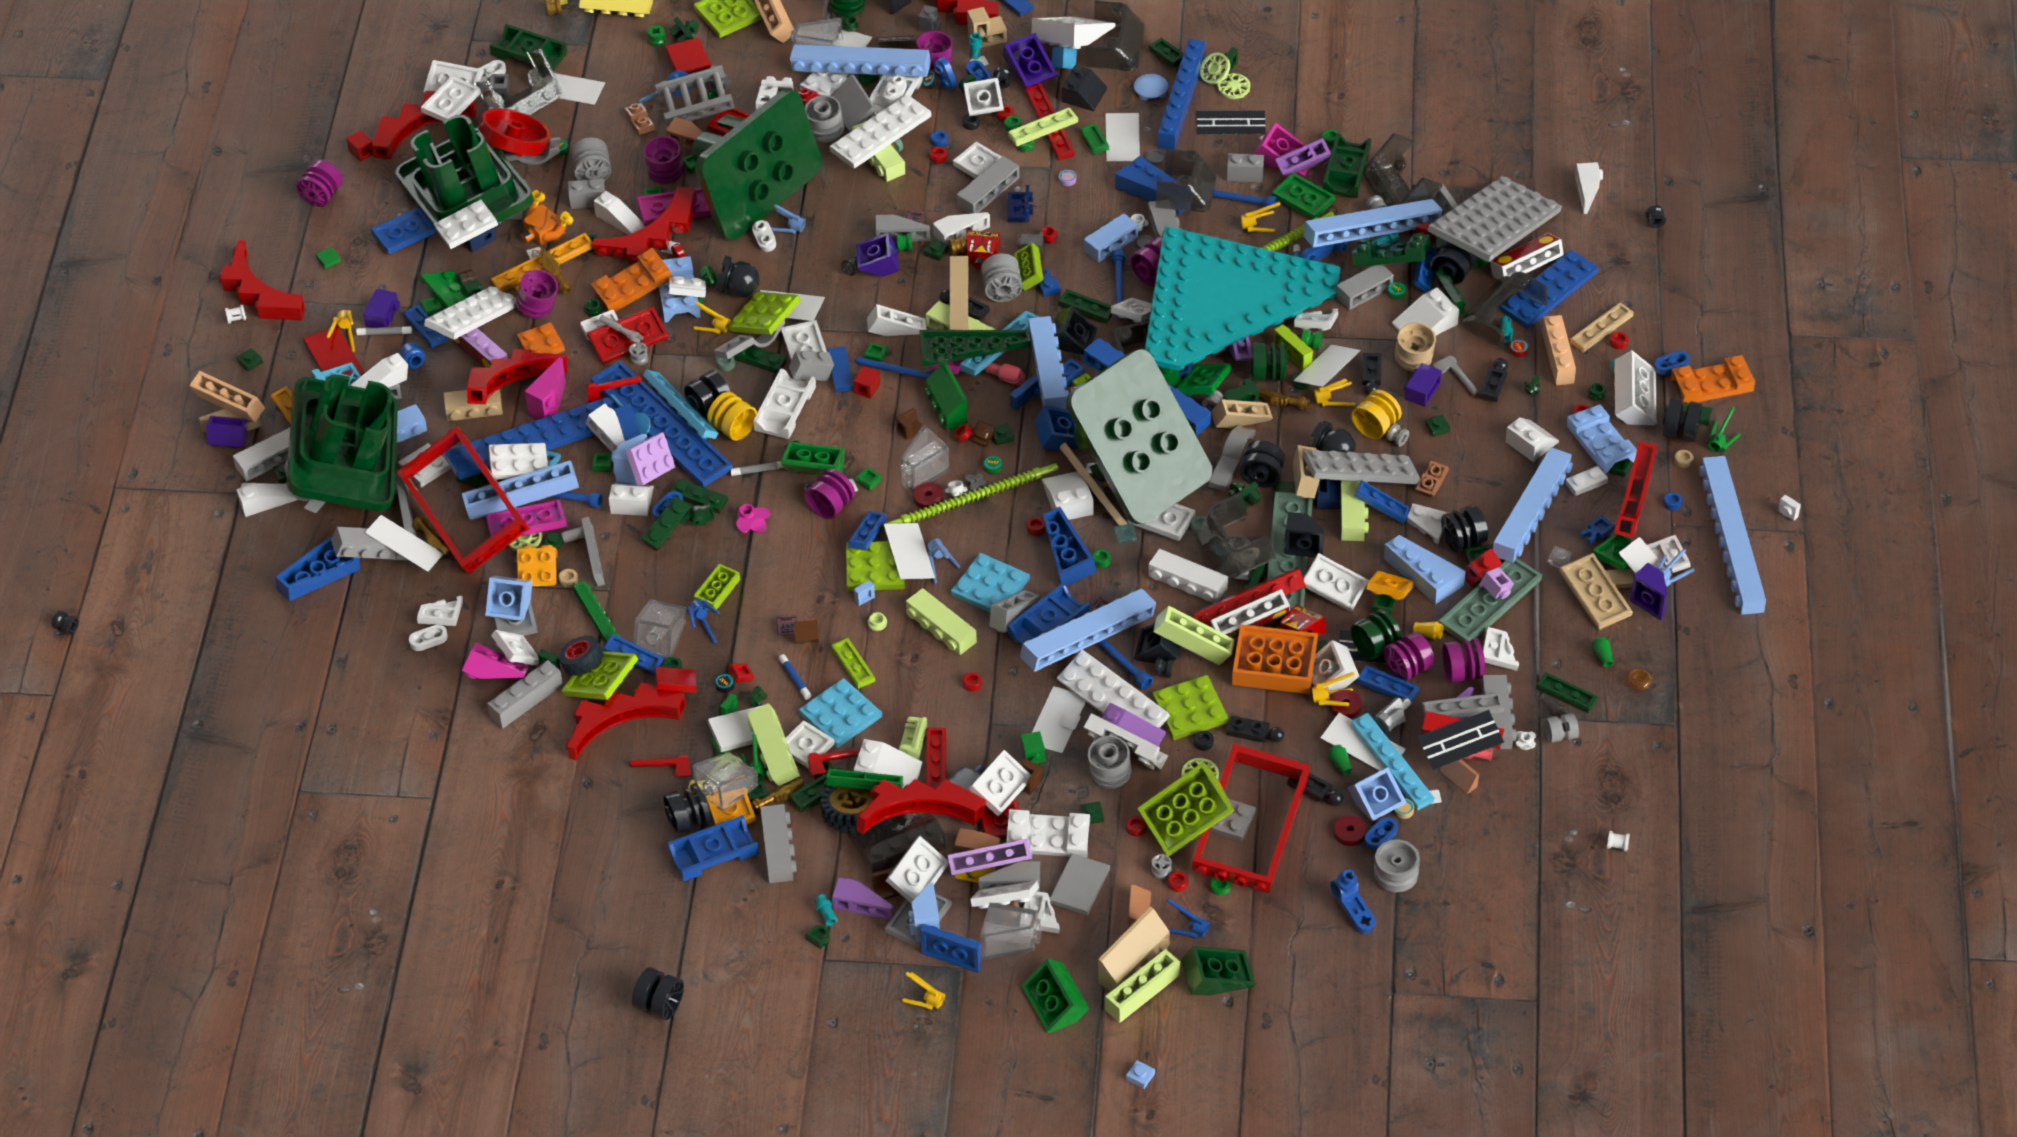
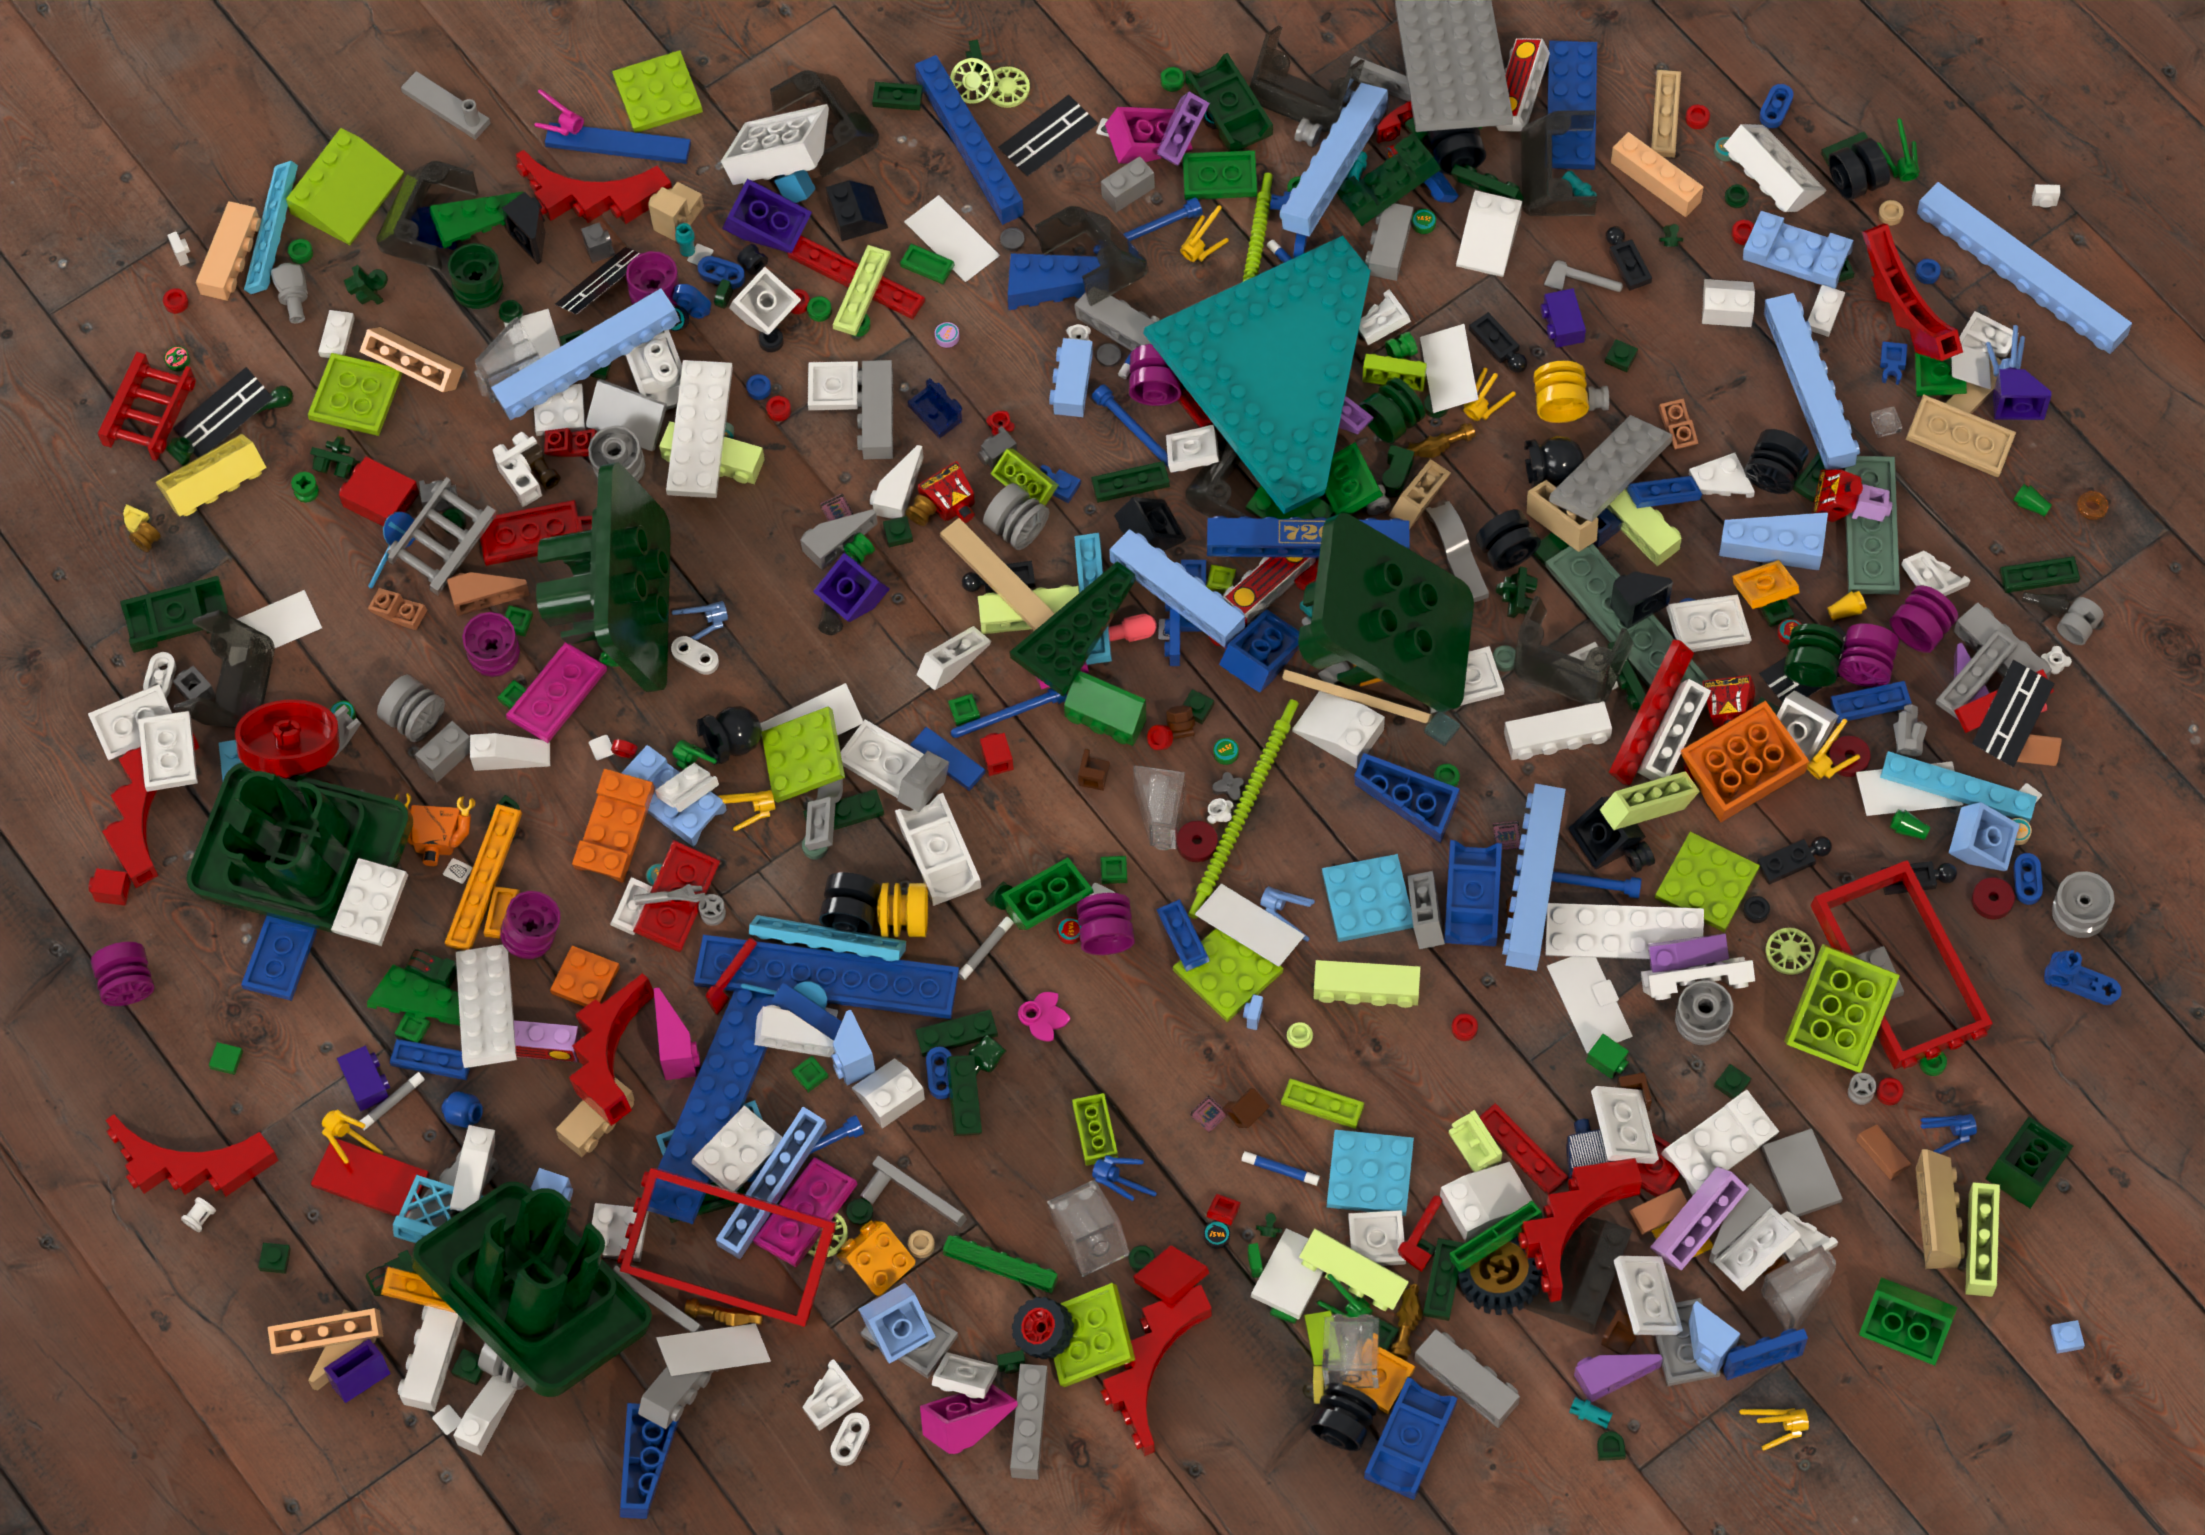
camera: 40 degrees left, 15 degrees up
(552, 266) = (506, 877): pearl gold piece -> none
(592, 307) = (599, 891): dark green plate -> none
(646, 661) = (1081, 1281): blue tile -> none
(650, 459) = (878, 1033): lavender plate -> none
(657, 235) = (583, 746): red arch -> none
(681, 763) = (1268, 1364): red piece -> none
(1036, 526) = (1343, 791): red tile -> none
(1136, 826) = (1788, 1061): red tile -> none
(1151, 86) = (921, 152): light blue dish -> none
(1414, 345) = (1523, 268): tan wheel -> none
(1519, 347) = (1610, 199): red tile -> none
(1714, 381) = (1835, 96): orange piece -> none

